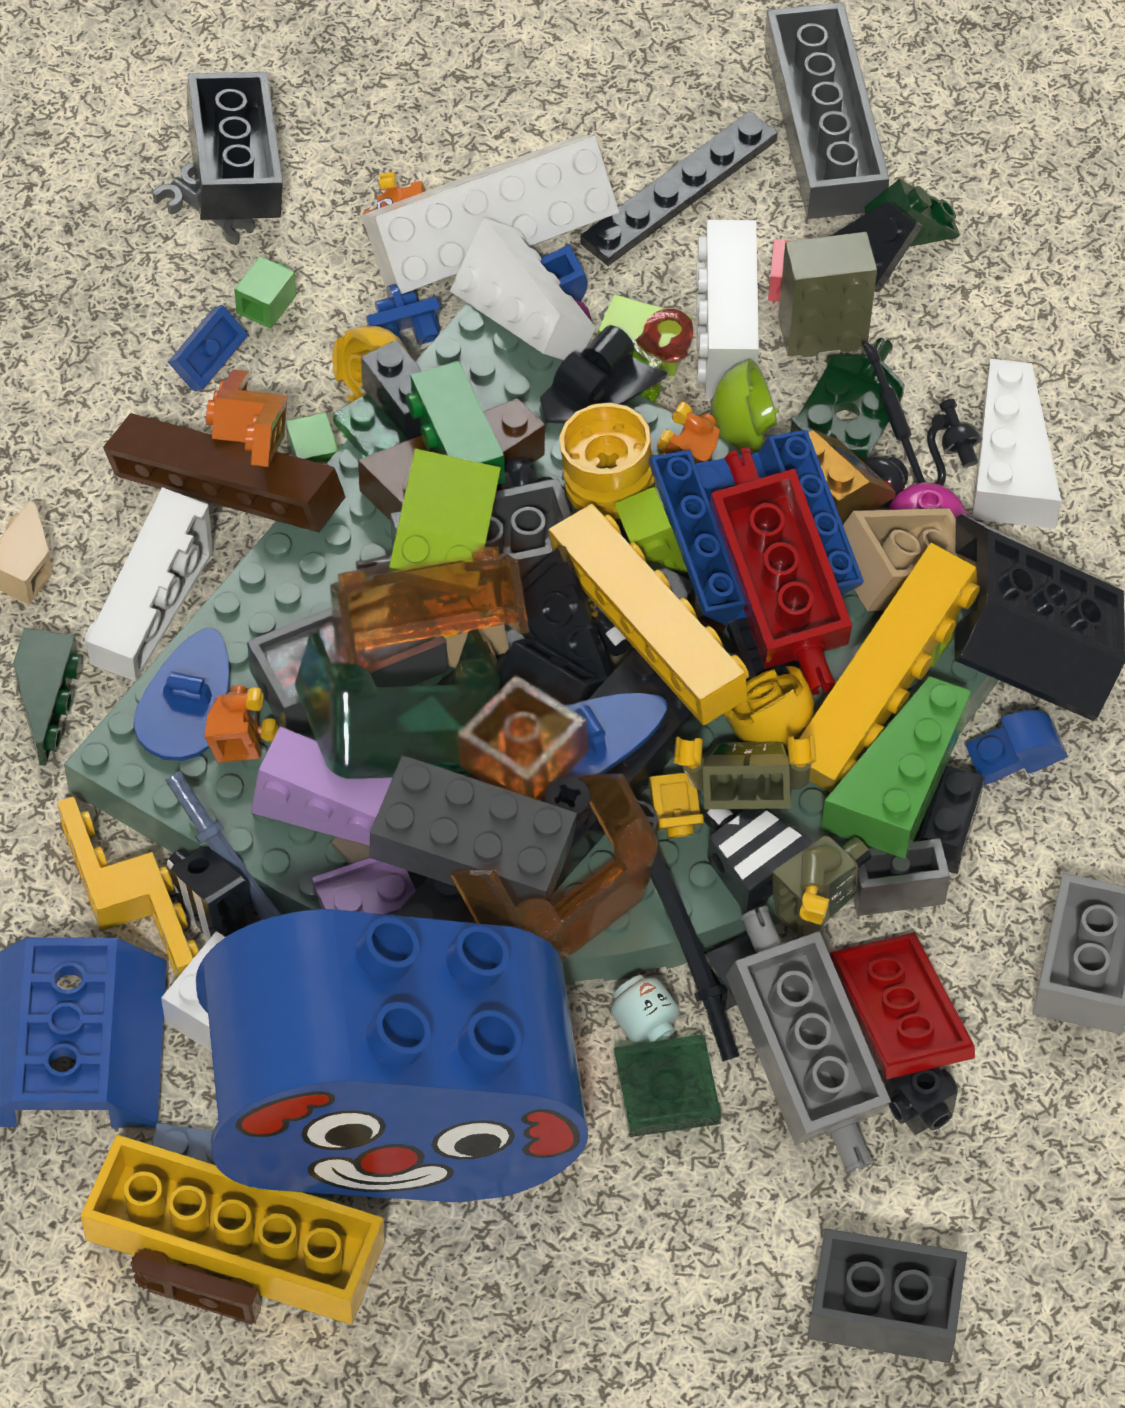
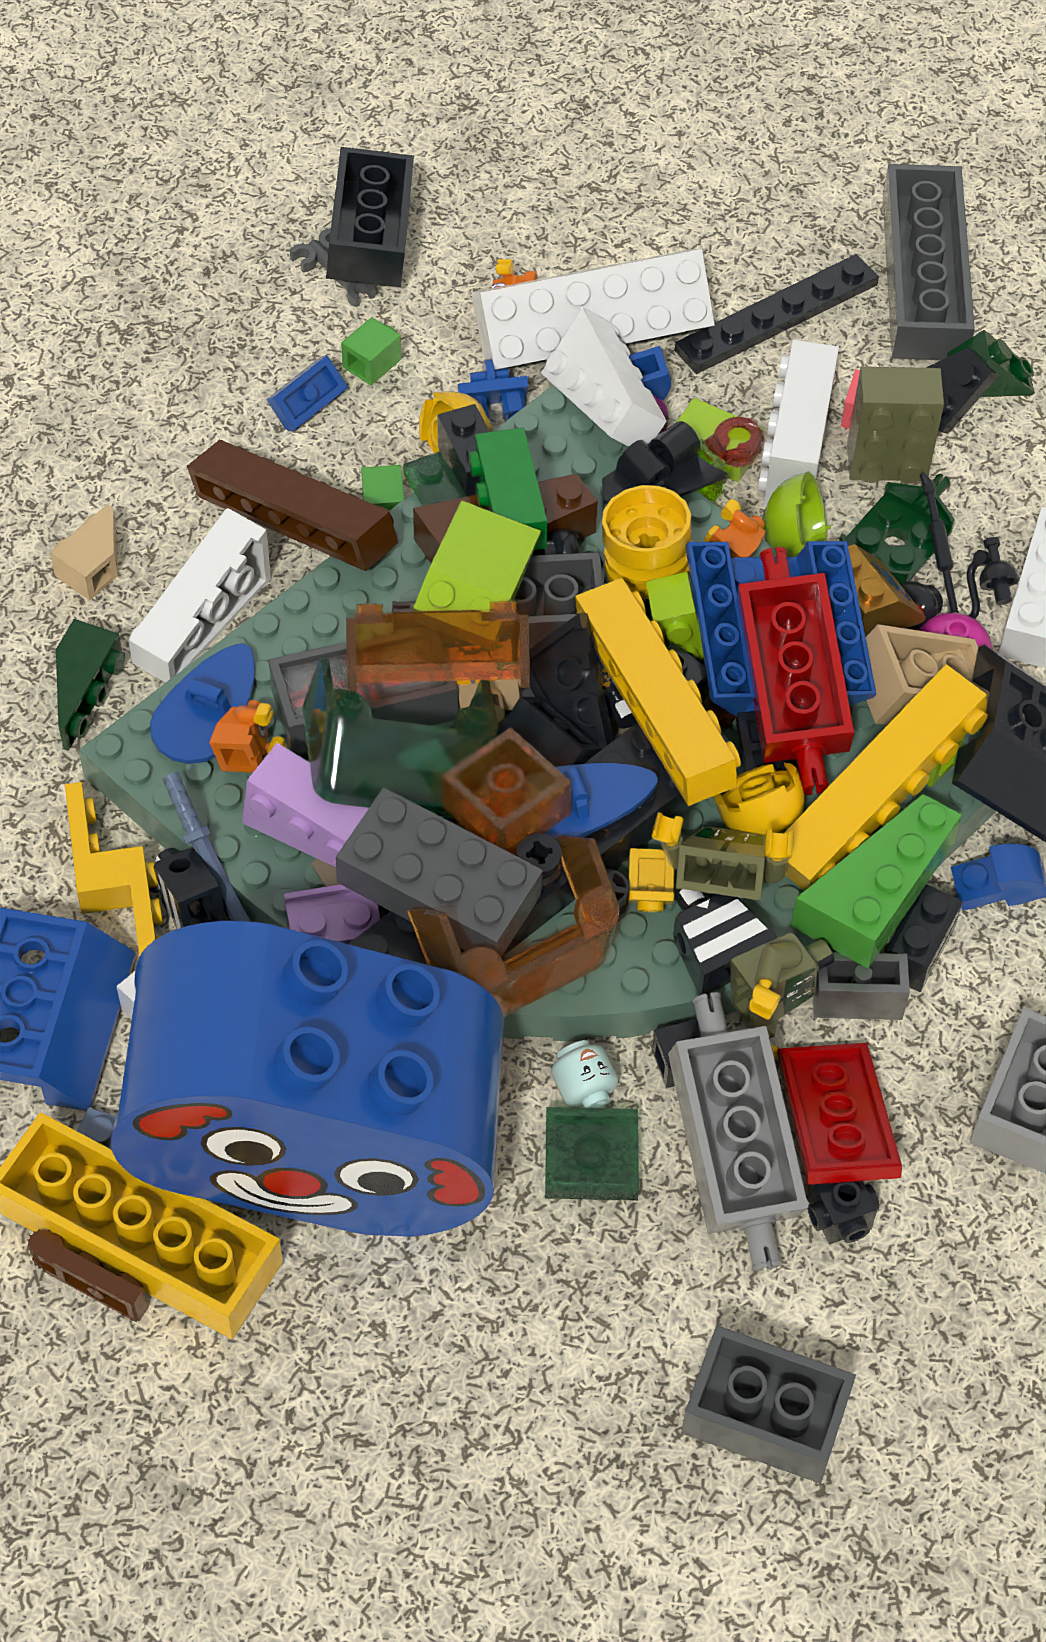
camera: 10 degrees right, 0 degrees up
(248, 417) = (322, 456): orange bracket -> none
(696, 960) = (643, 1034): black sword -> none

